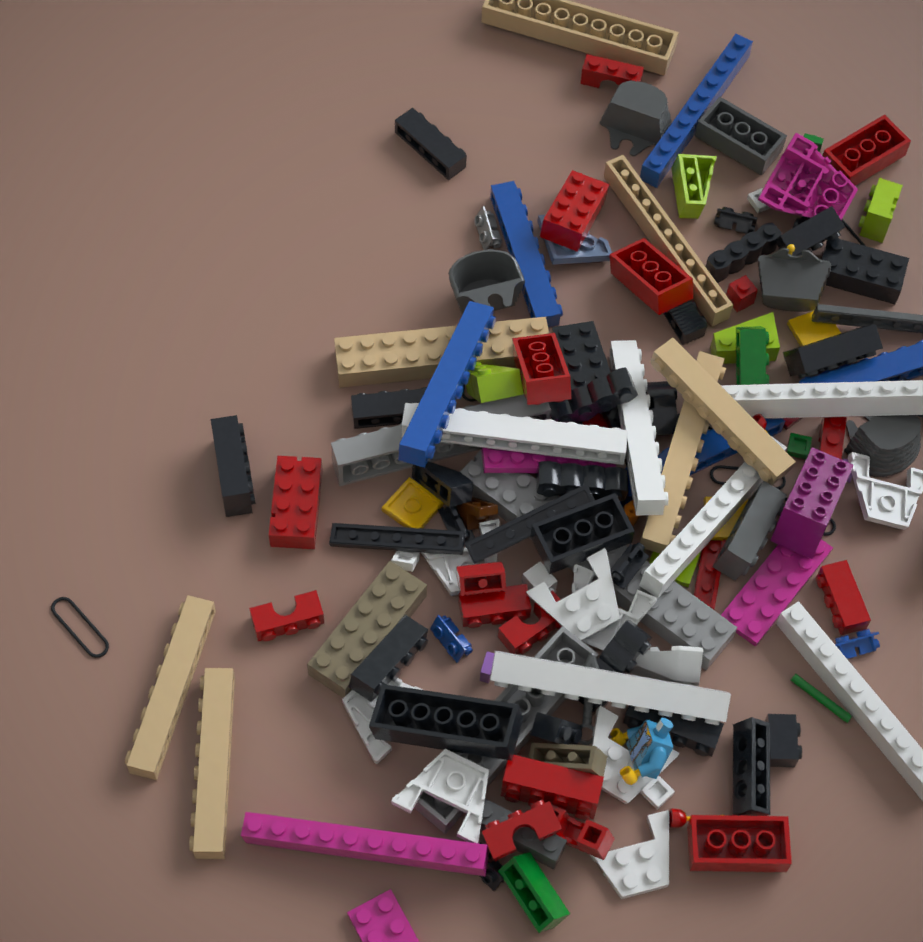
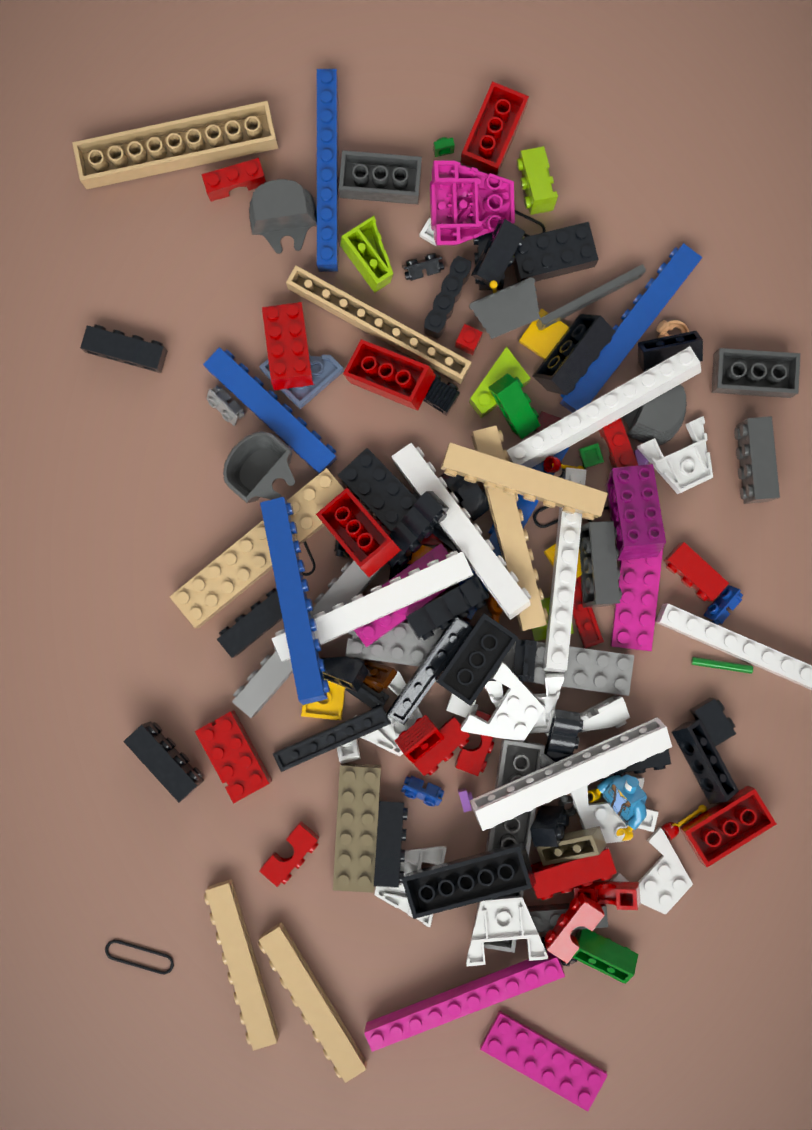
camera: 25 degrees left, 25 degrees up
(494, 382) = (325, 564): lime wedge -> none

